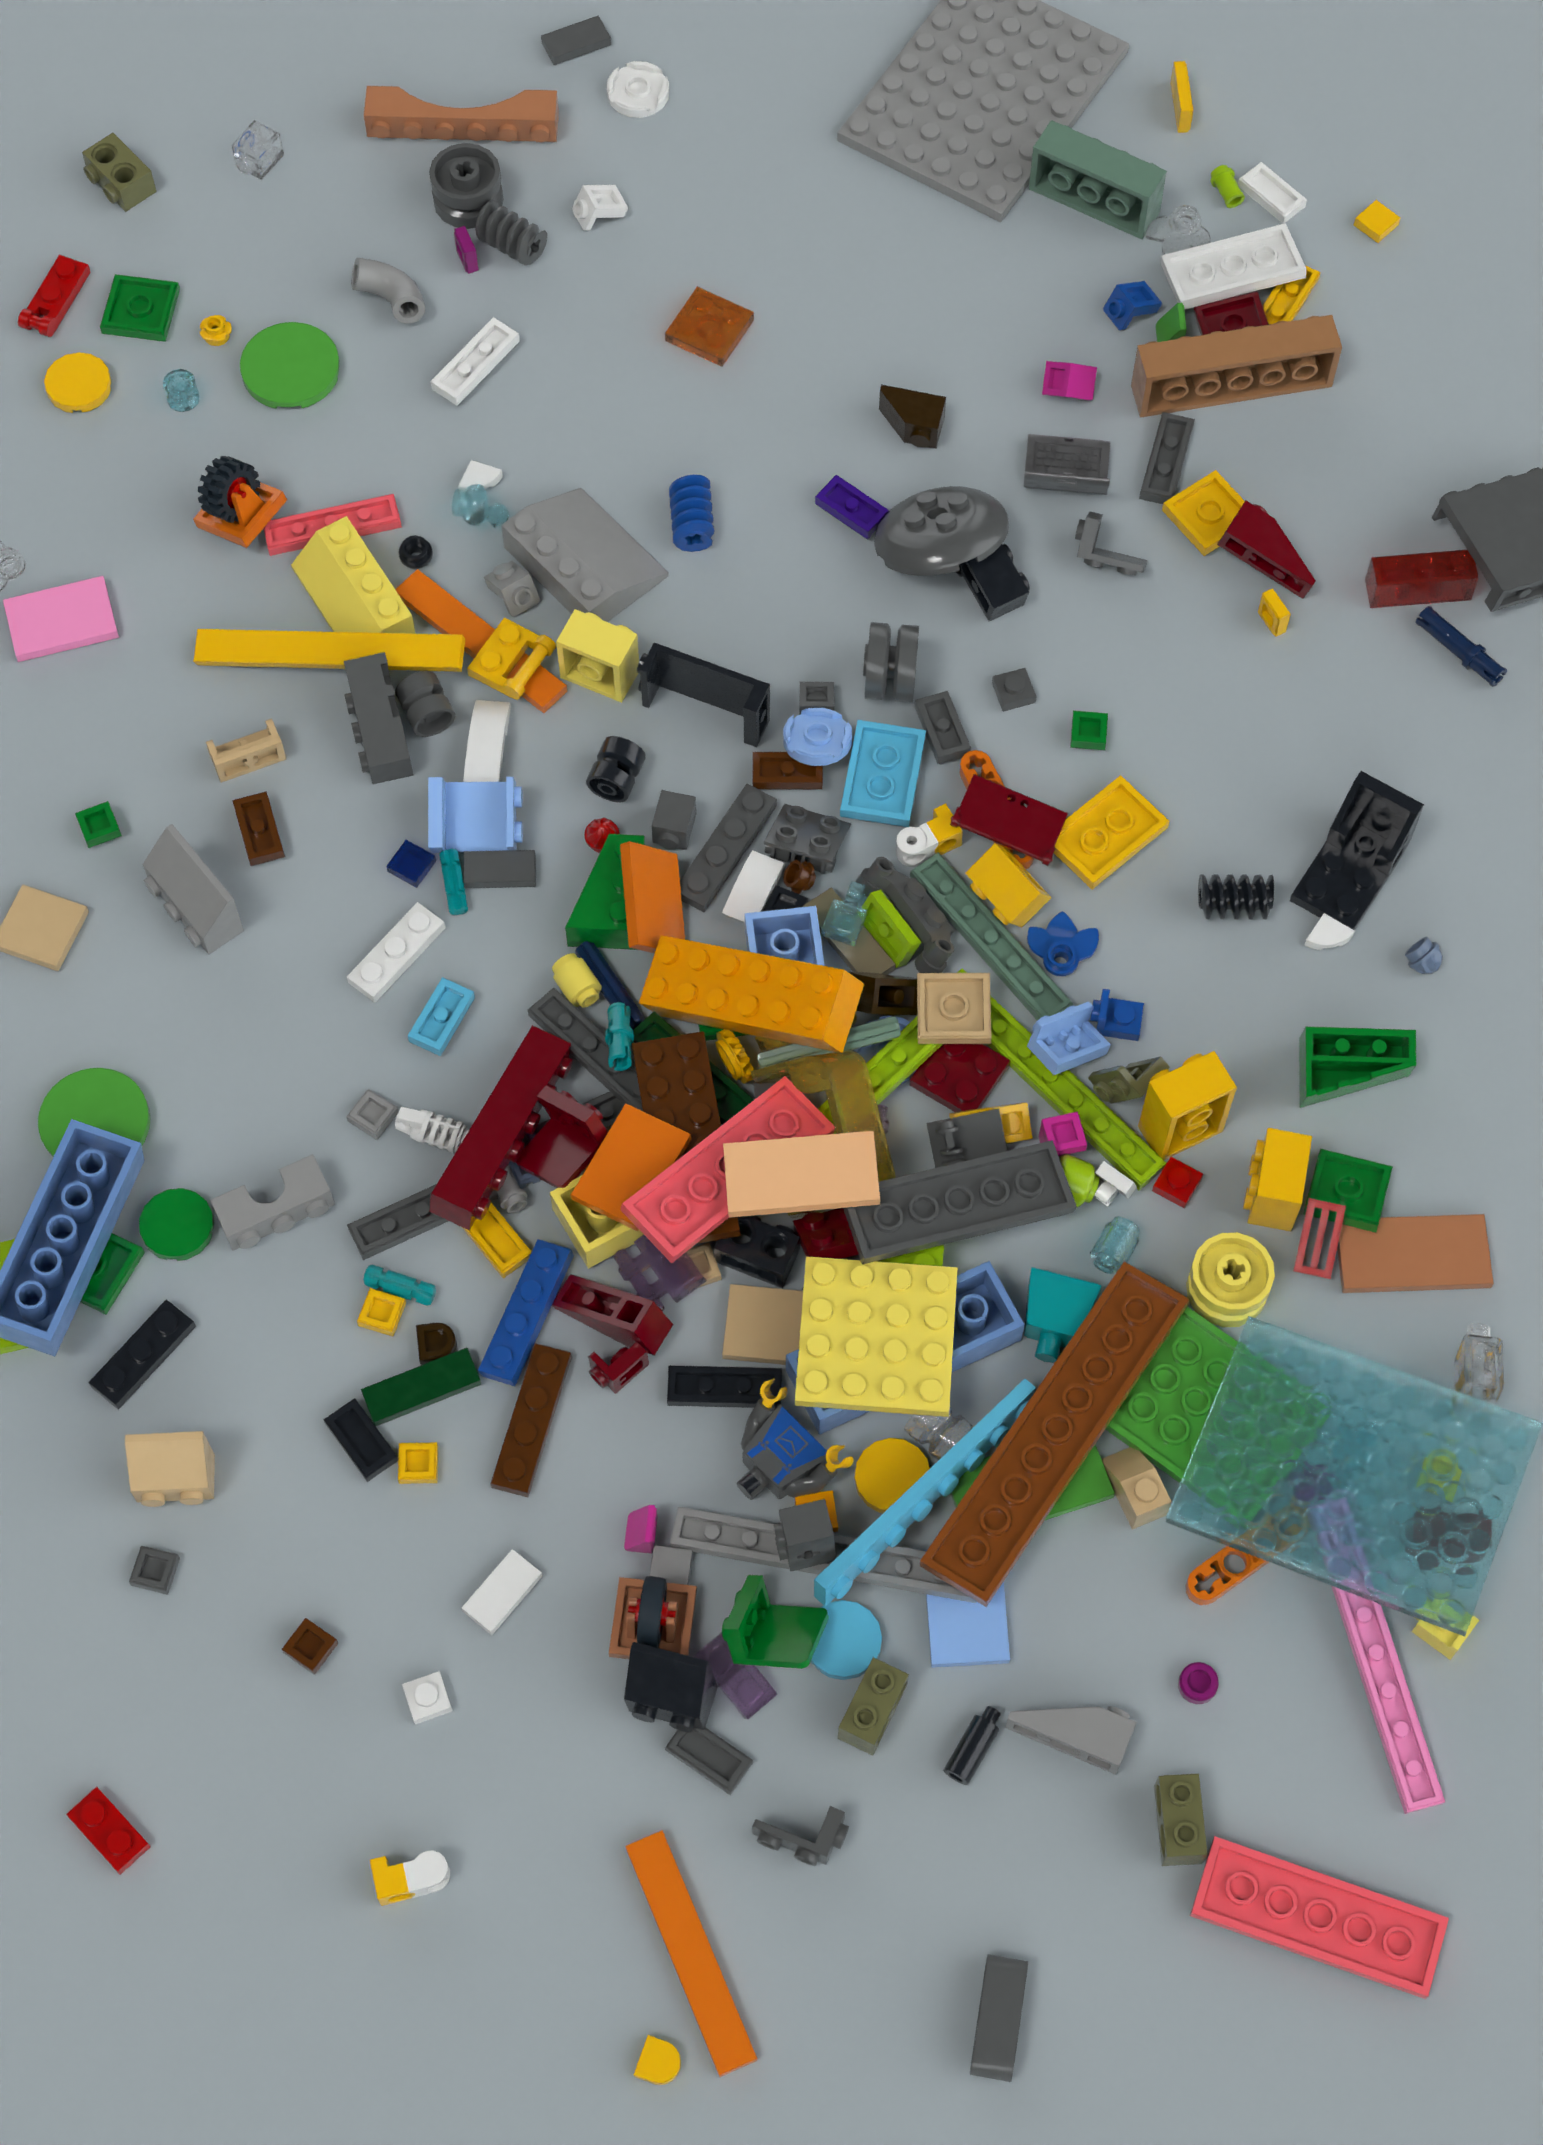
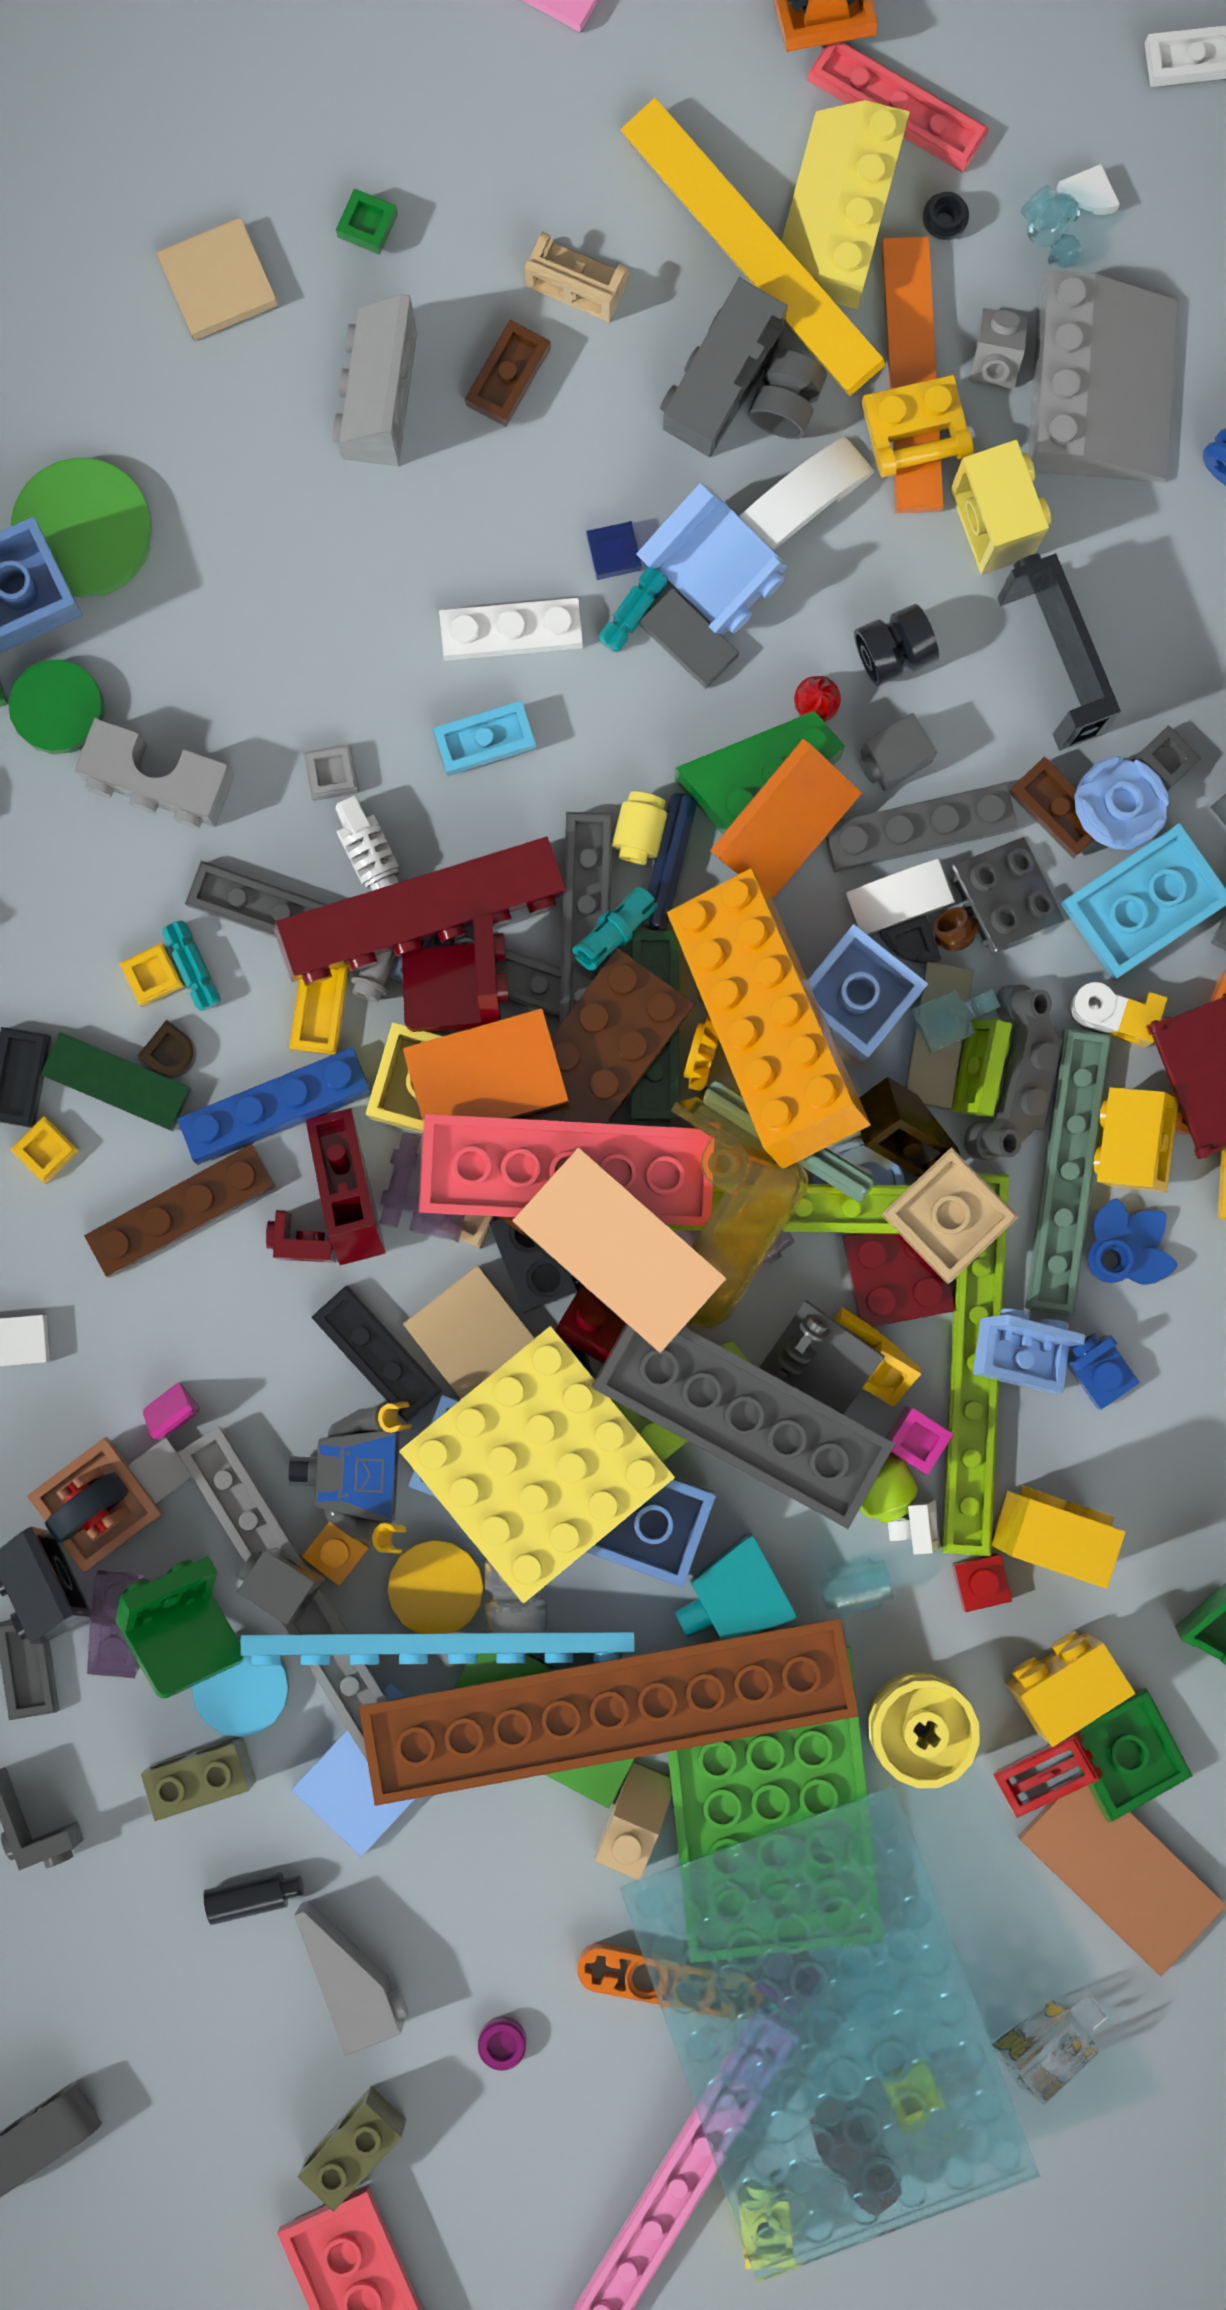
camera: 45 degrees right, 20 degrees up
(1126, 1082) = (1038, 1453): olive bracket -> none

